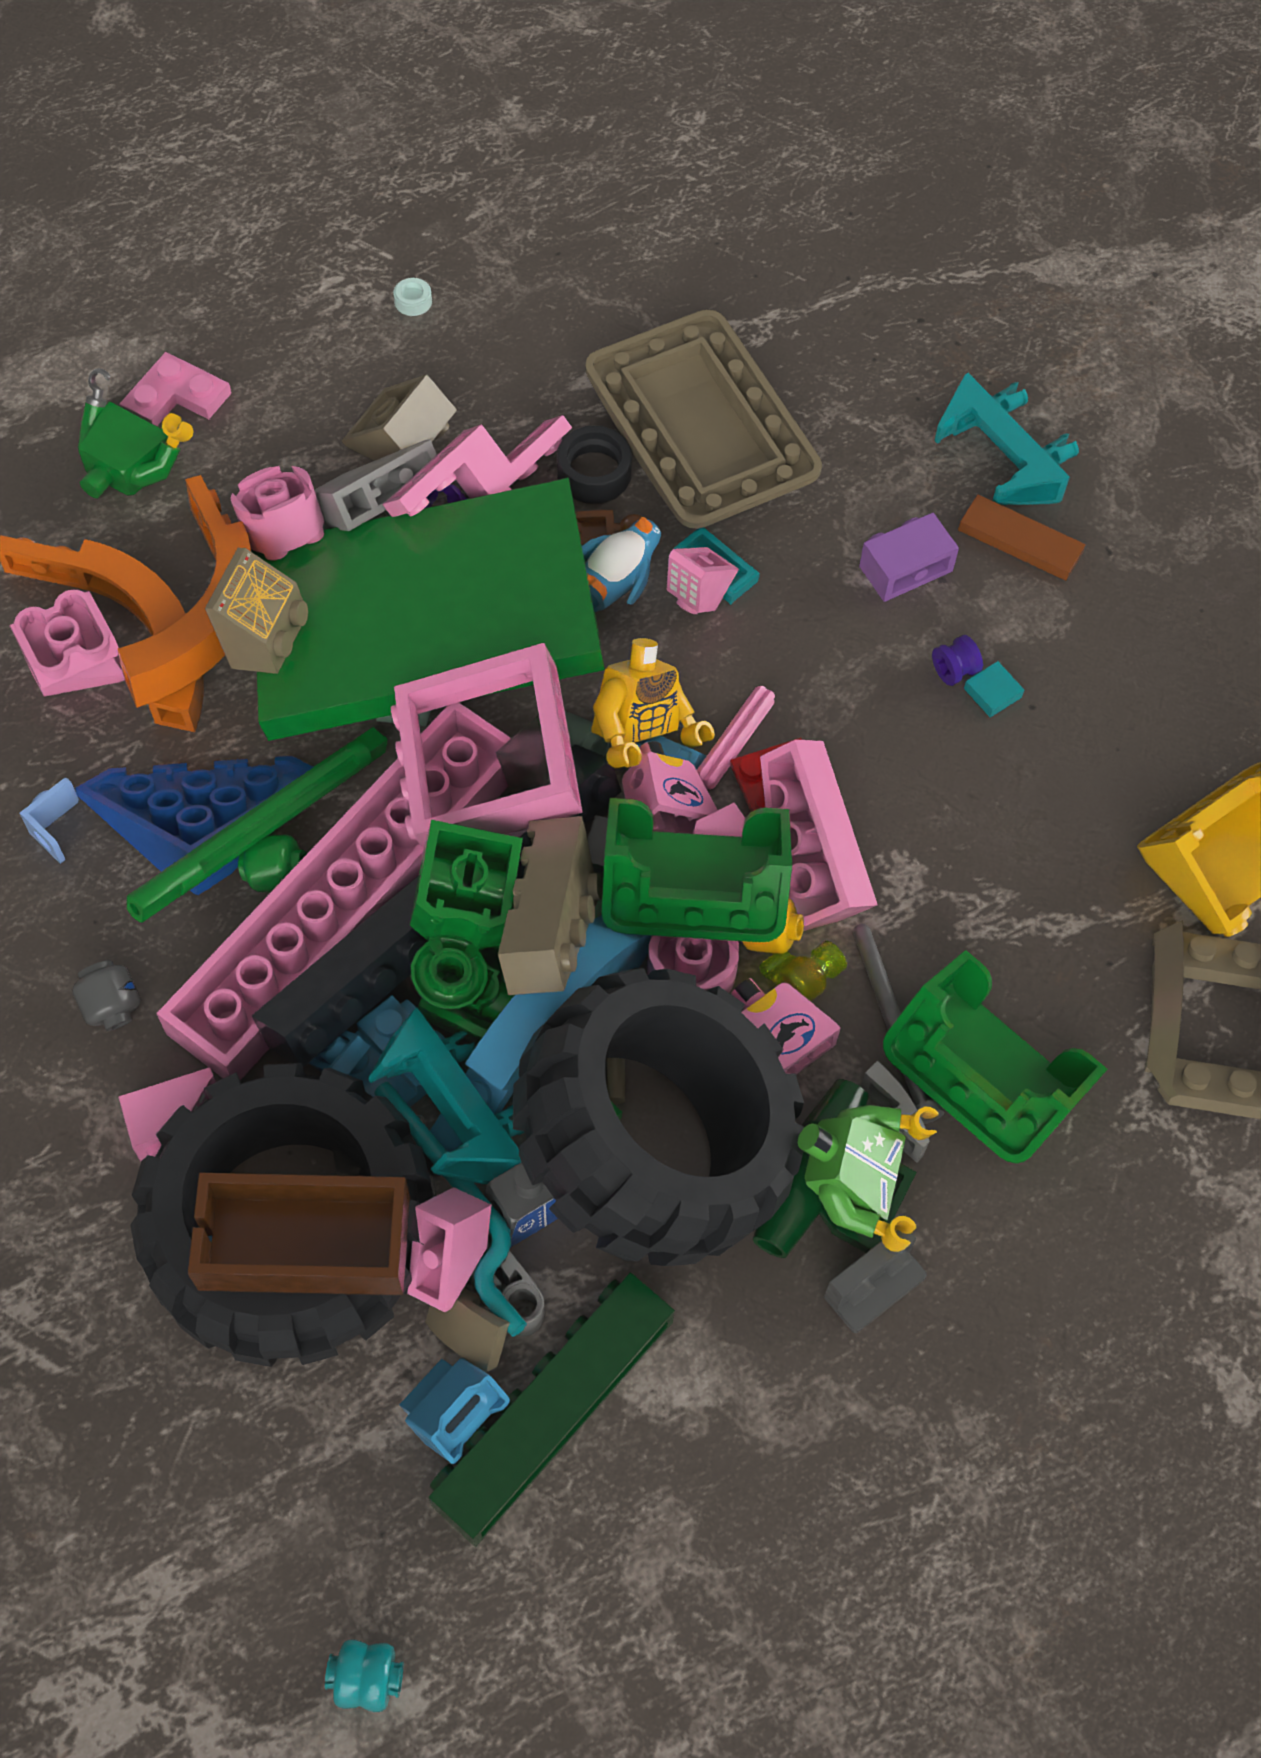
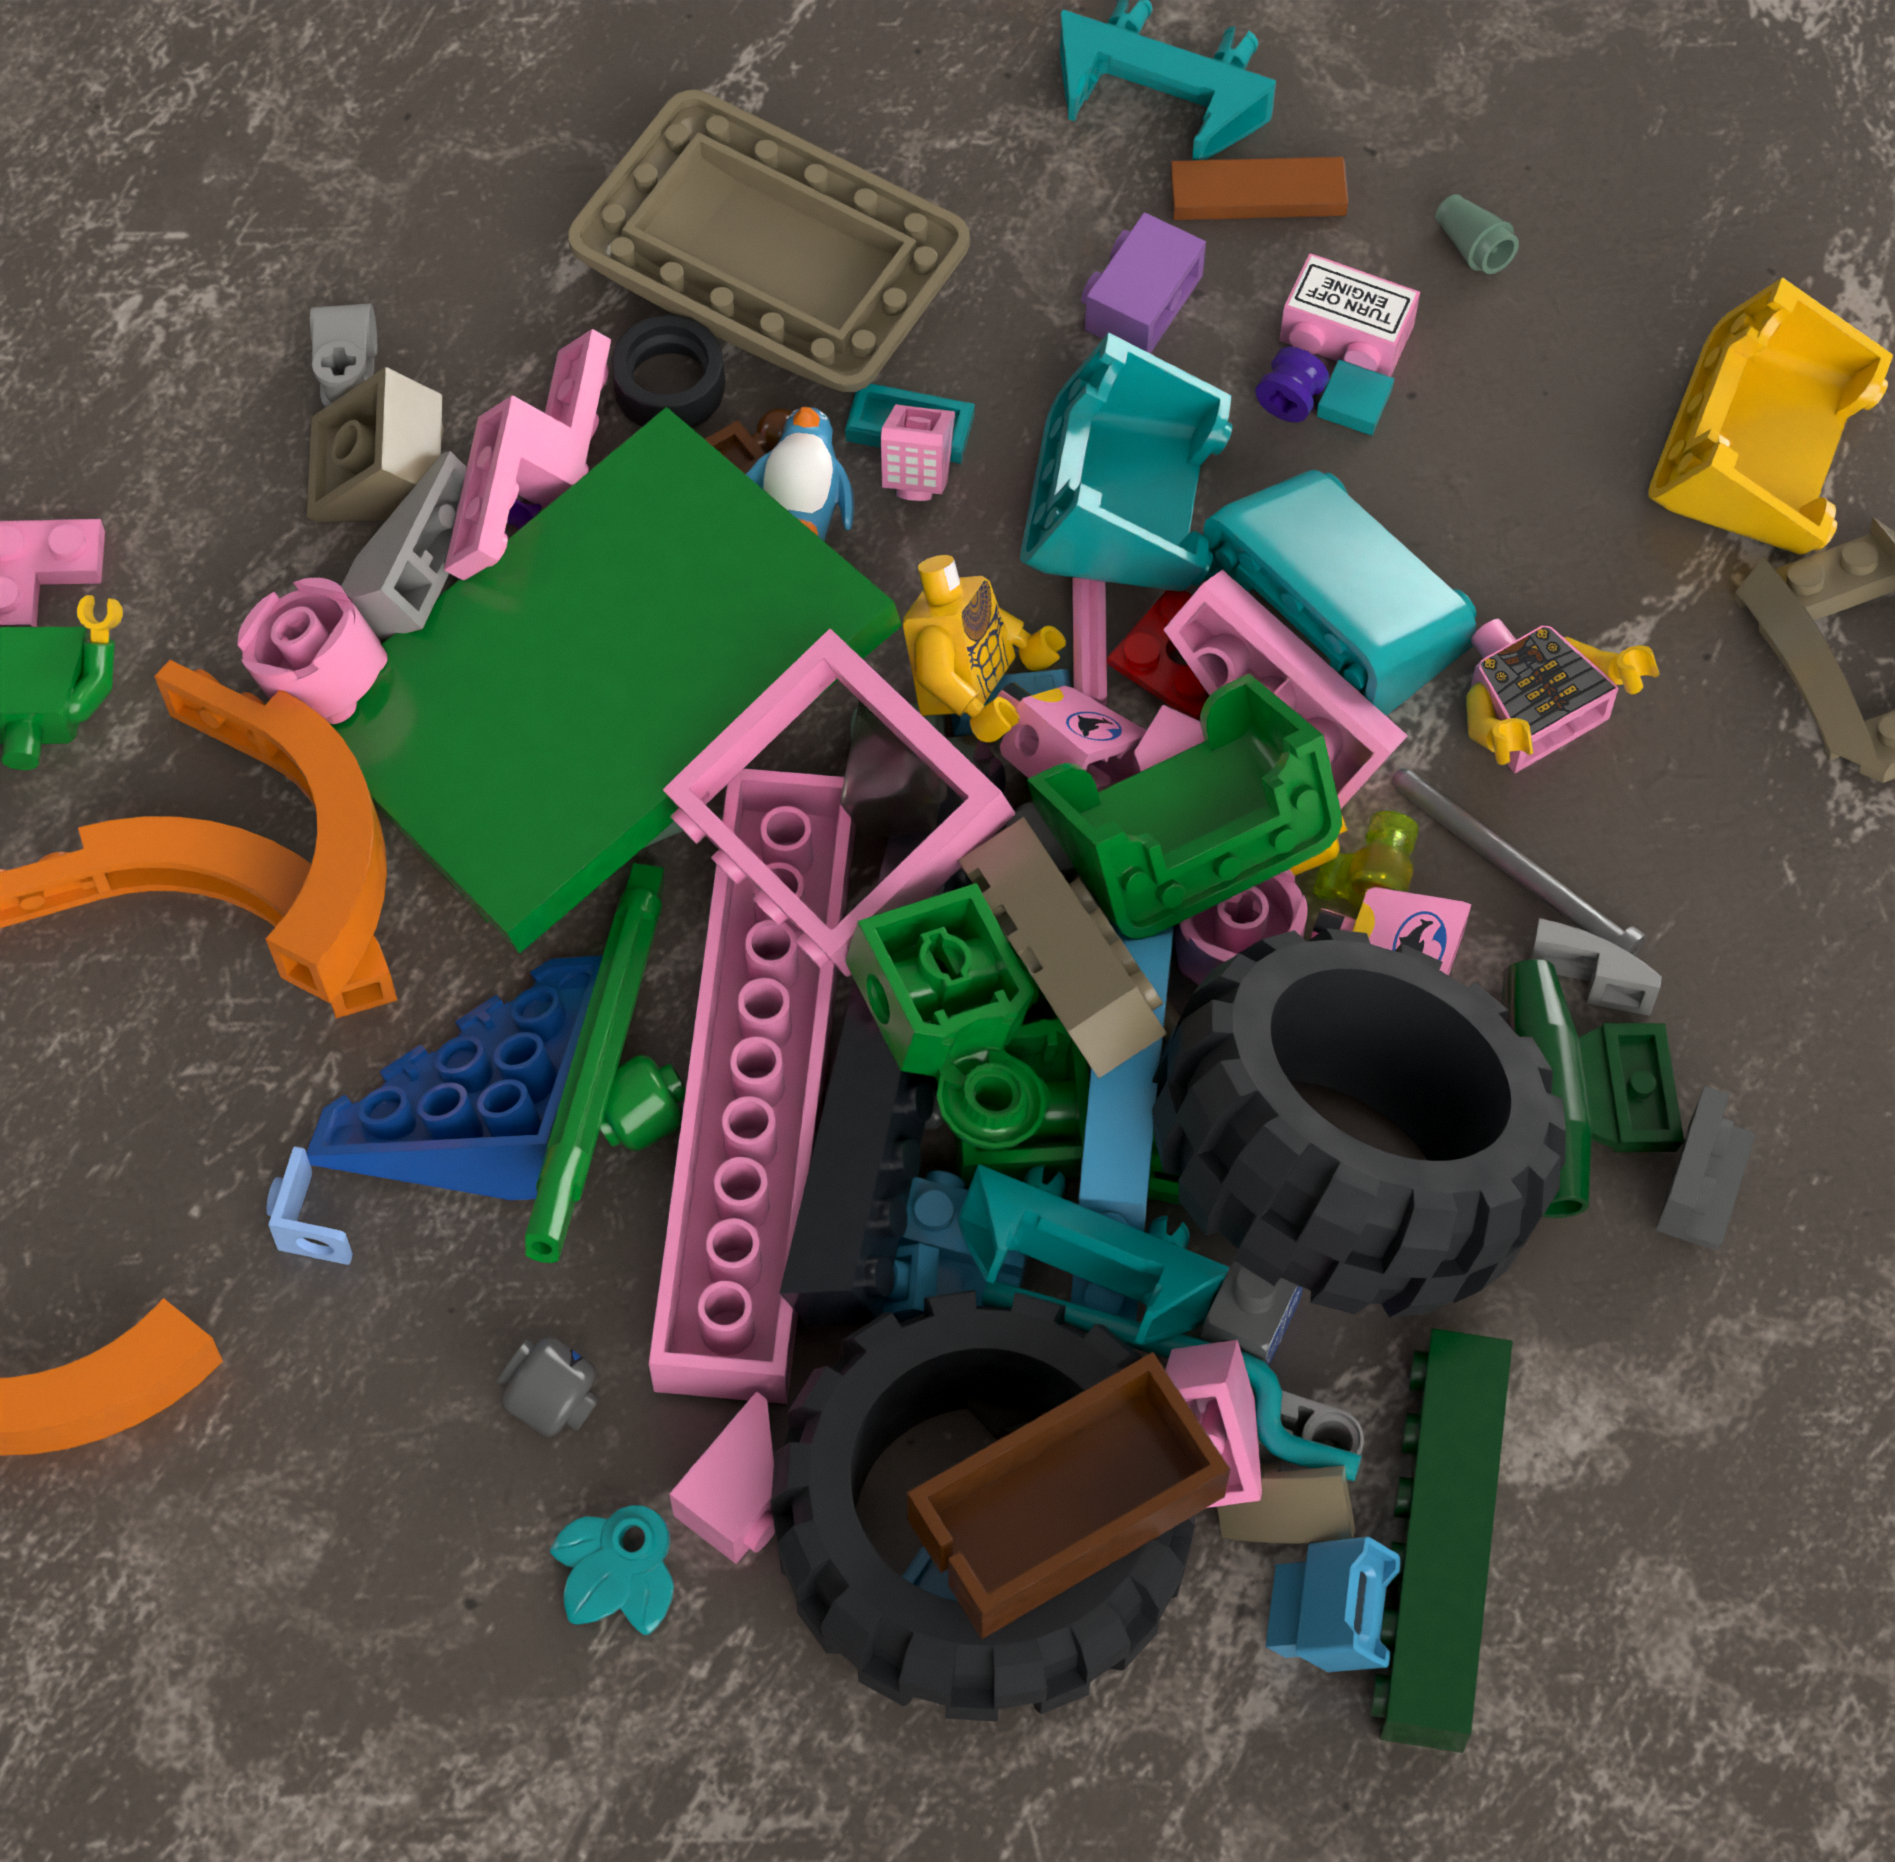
camera: 30 degrees left, 0 degrees up
(64, 1124) = (609, 1575): none -> teal plate
(68, 644) = (163, 976): bright pink piece -> none
(256, 613) = (410, 796): dark tan slope -> none
(412, 296) = (258, 273): light aqua tile -> none
(425, 354) = (342, 348): none -> light grey piece
(816, 658) = (1125, 472): none -> teal windscreen
(857, 1167) = (1612, 1051): bright green torso -> none
(900, 795) = (1343, 585): none -> teal windscreen
(982, 1066) = (1665, 861): green windscreen -> none
(983, 922) = (1544, 690): none -> torso
(1021, 638) = (1349, 315): none -> brick
(1138, 632) = (1478, 235): none -> sand green cone

